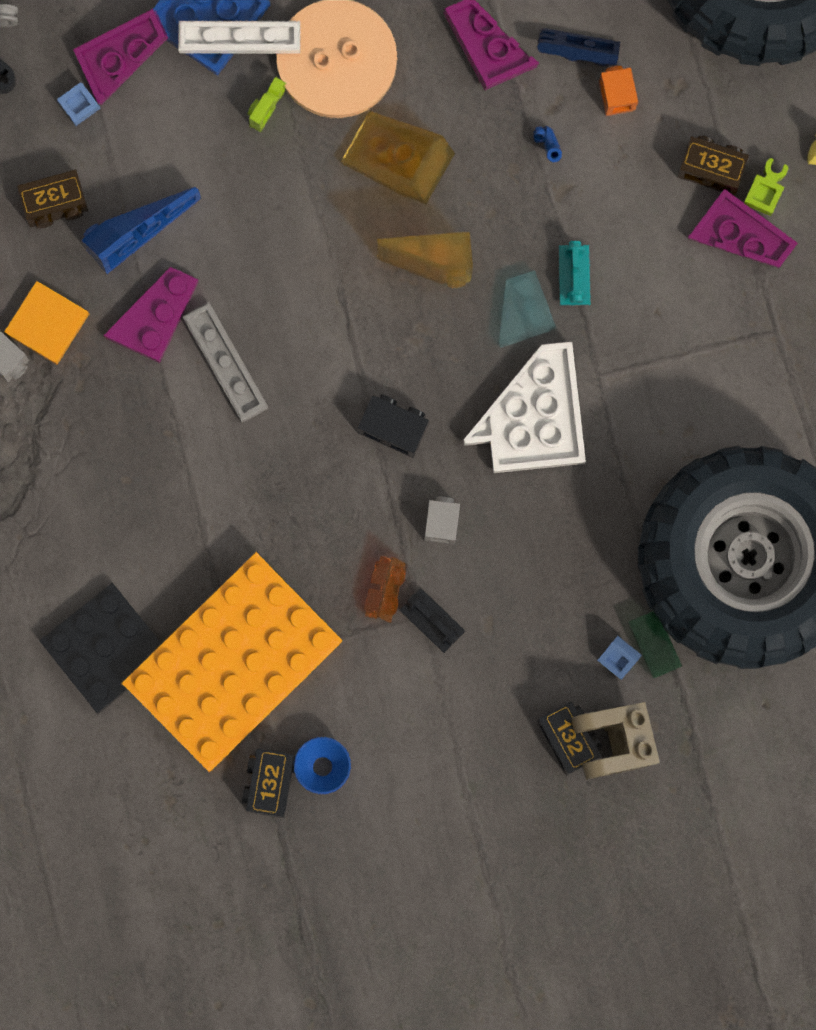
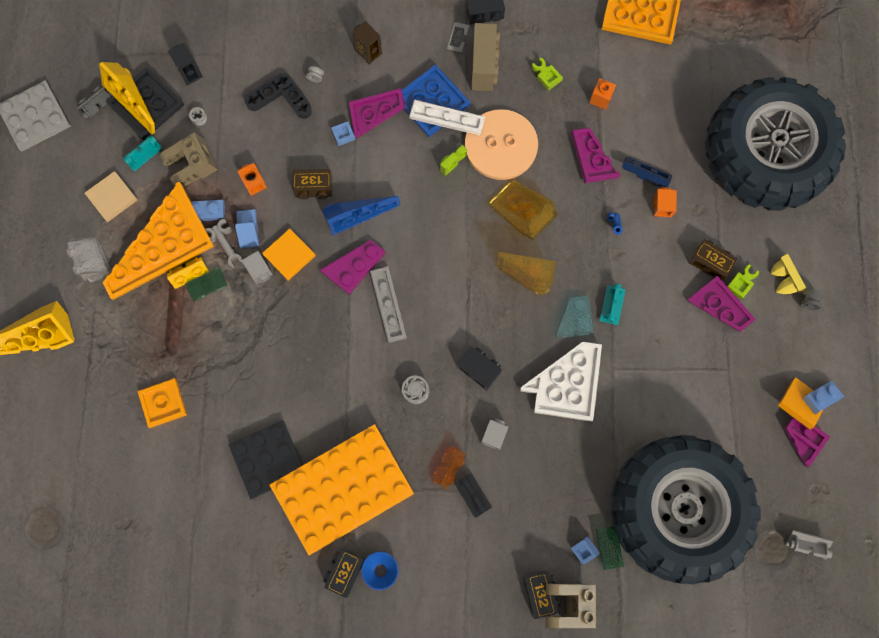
camera: 20 degrees right, 5 degrees down
(303, 484) = (415, 389): none -> light grey wheel

